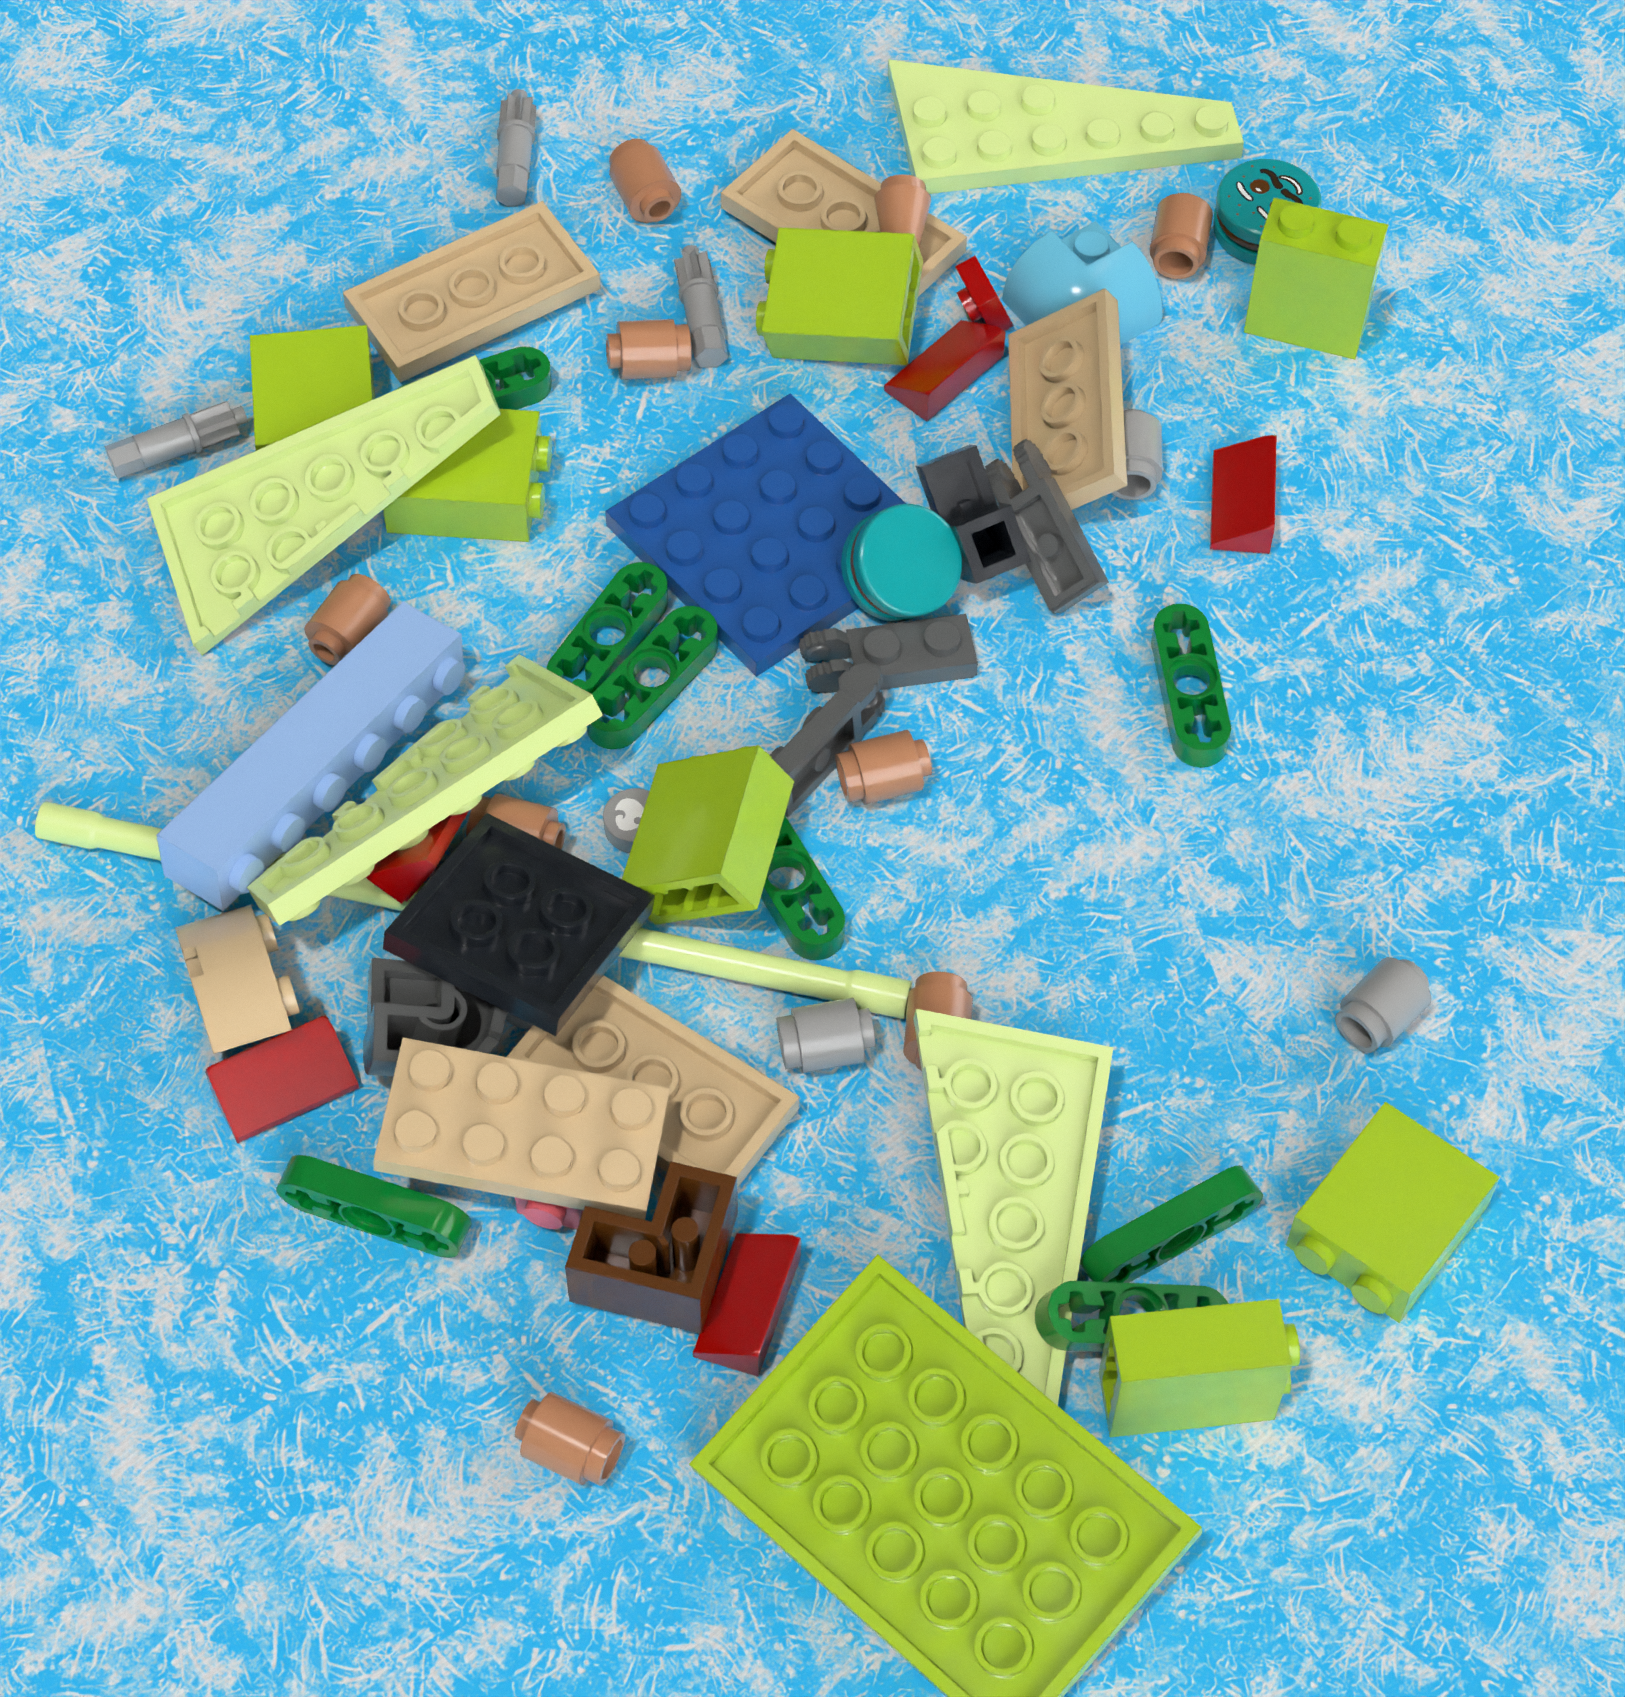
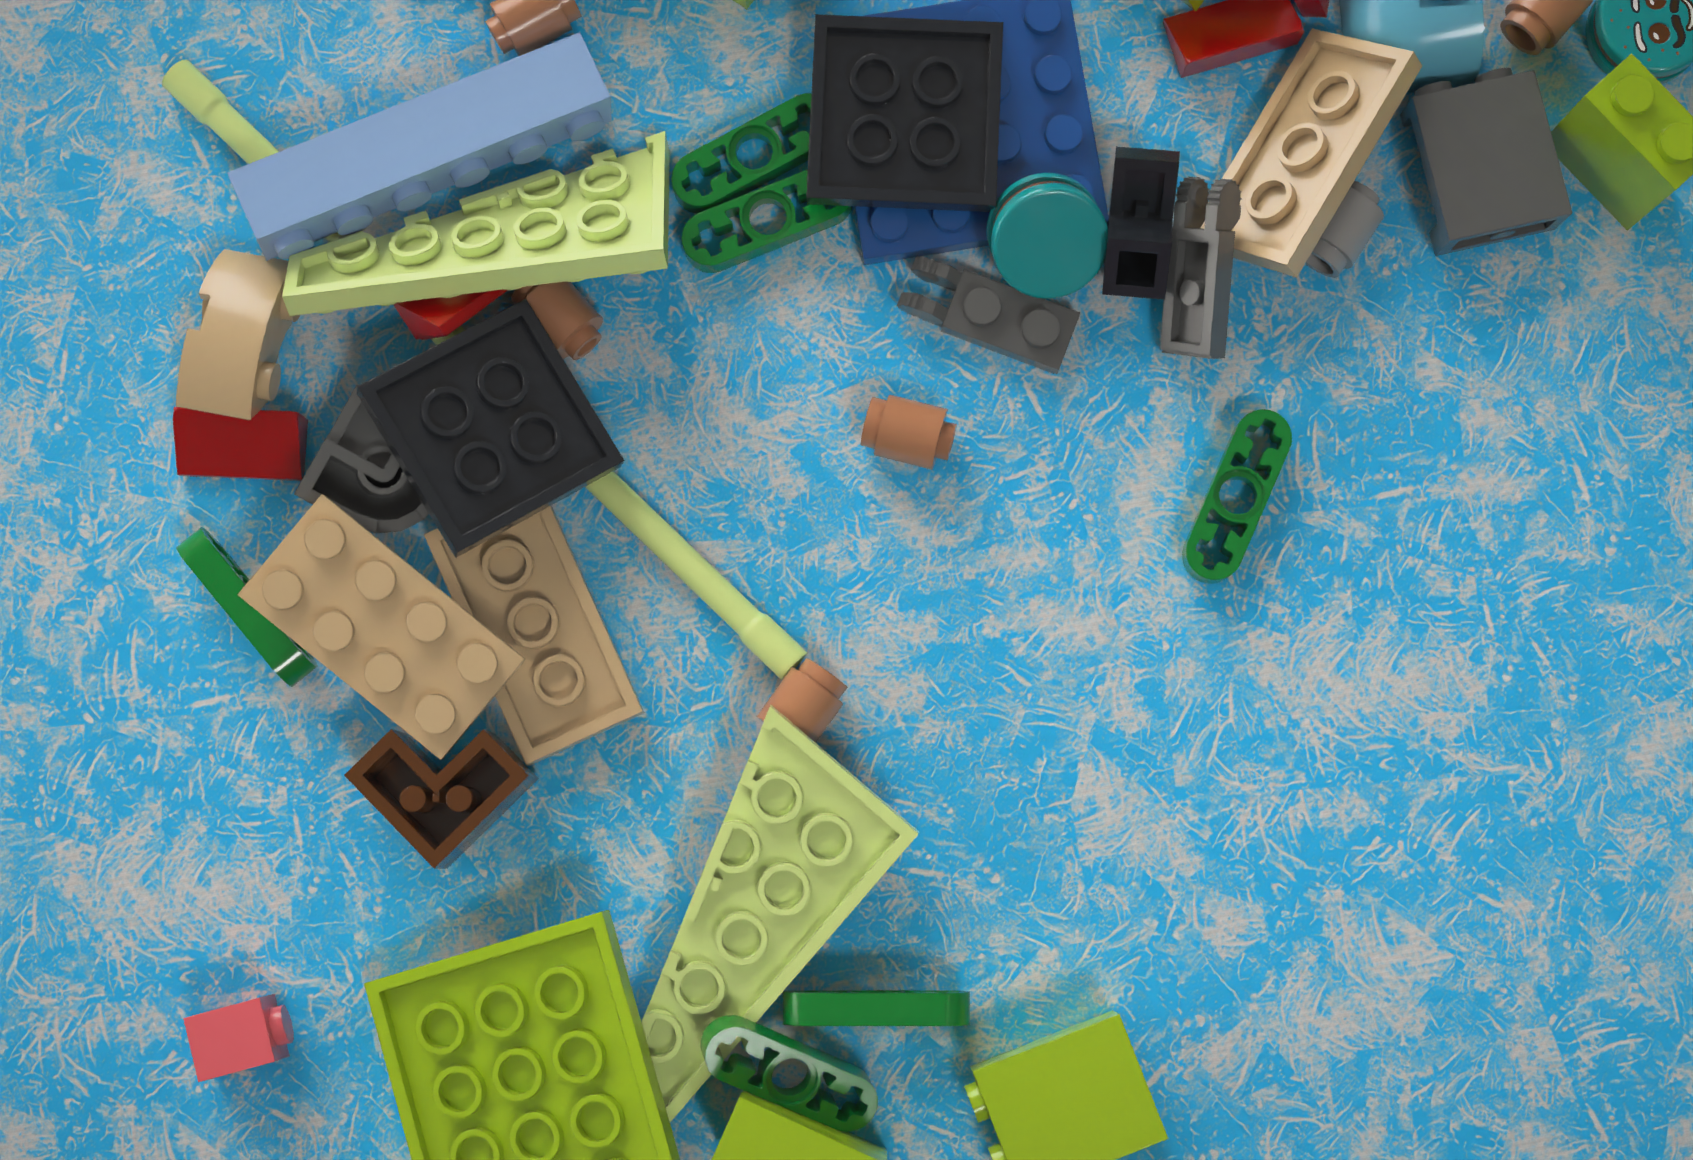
camera: 35 degrees right, 25 degrees up
(569, 1439) = (284, 905): nougat brick -> none
(596, 1580) = (239, 1037): none -> coral brick
(623, 817) = (669, 356): light grey tile -> none
(709, 833) = (708, 421): lime brick -> none
(722, 532) = (905, 113): none -> black plate
(749, 1301) = (499, 863): red slope -> none
(787, 905) = (749, 441): green beam -> none
(825, 1035) = (700, 663): light grey brick -> none
(830, 730) = (876, 372): dark grey hinge -> none
(1216, 353) = (1487, 160): none -> dark grey panel
(1244, 496) = (1416, 327): red slope -> none
(1383, 1004) = (1191, 910): light grey brick -> none

